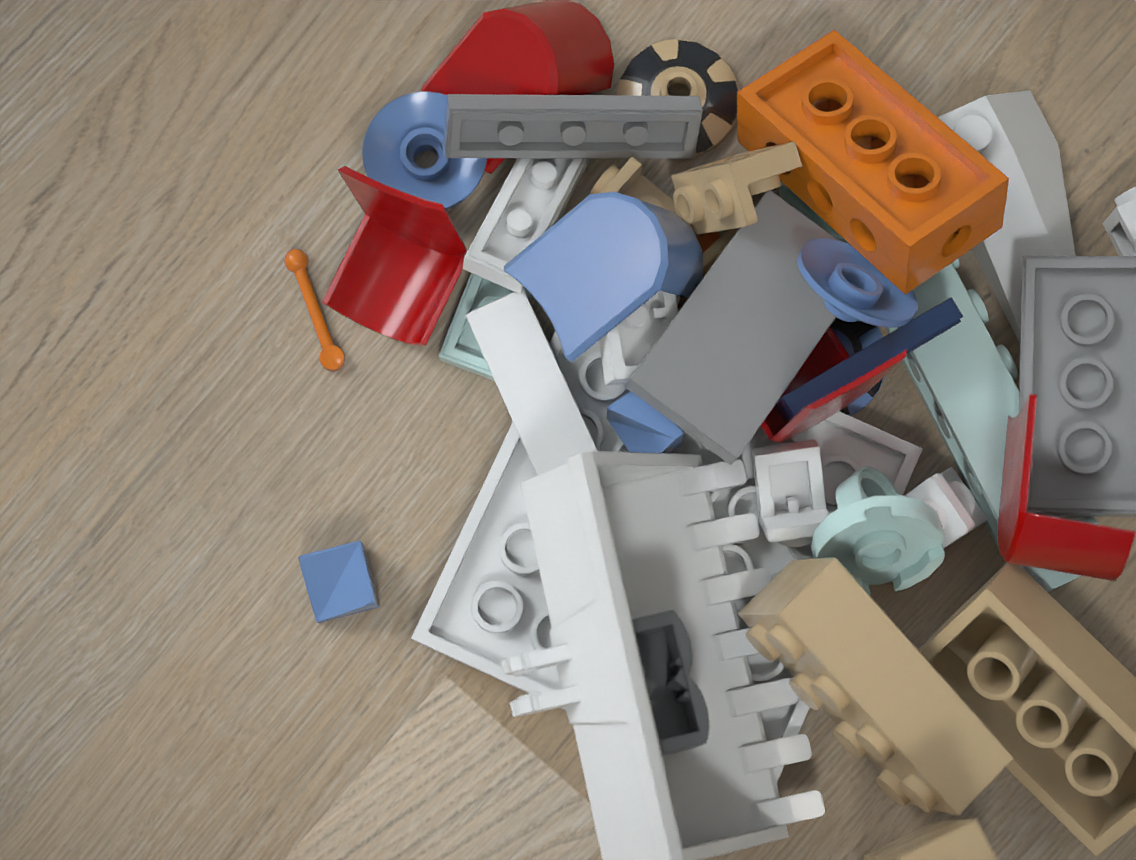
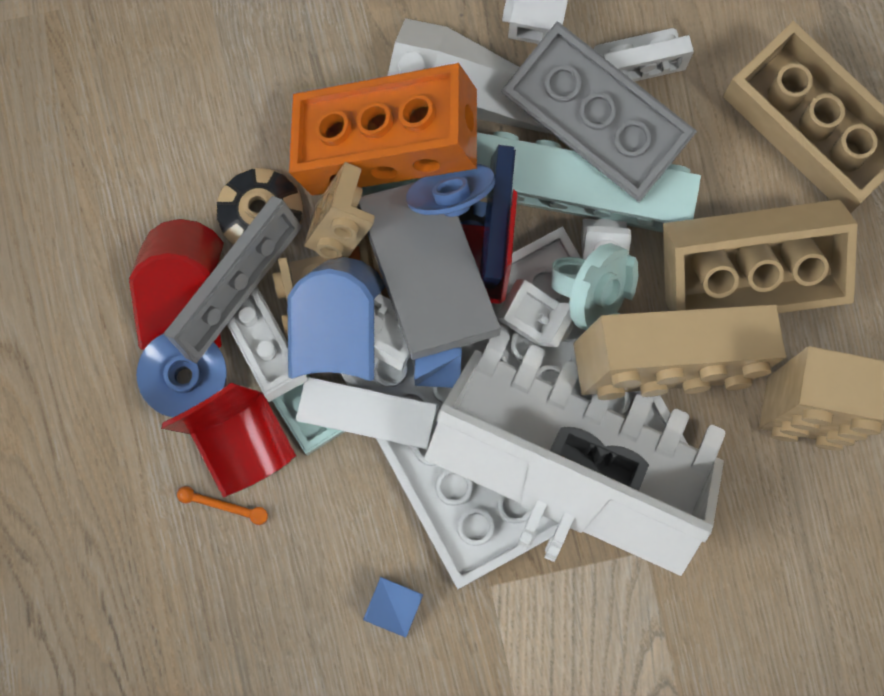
camera: 55 degrees left, 0 degrees up
(1049, 540) = (669, 200): red piece -> none

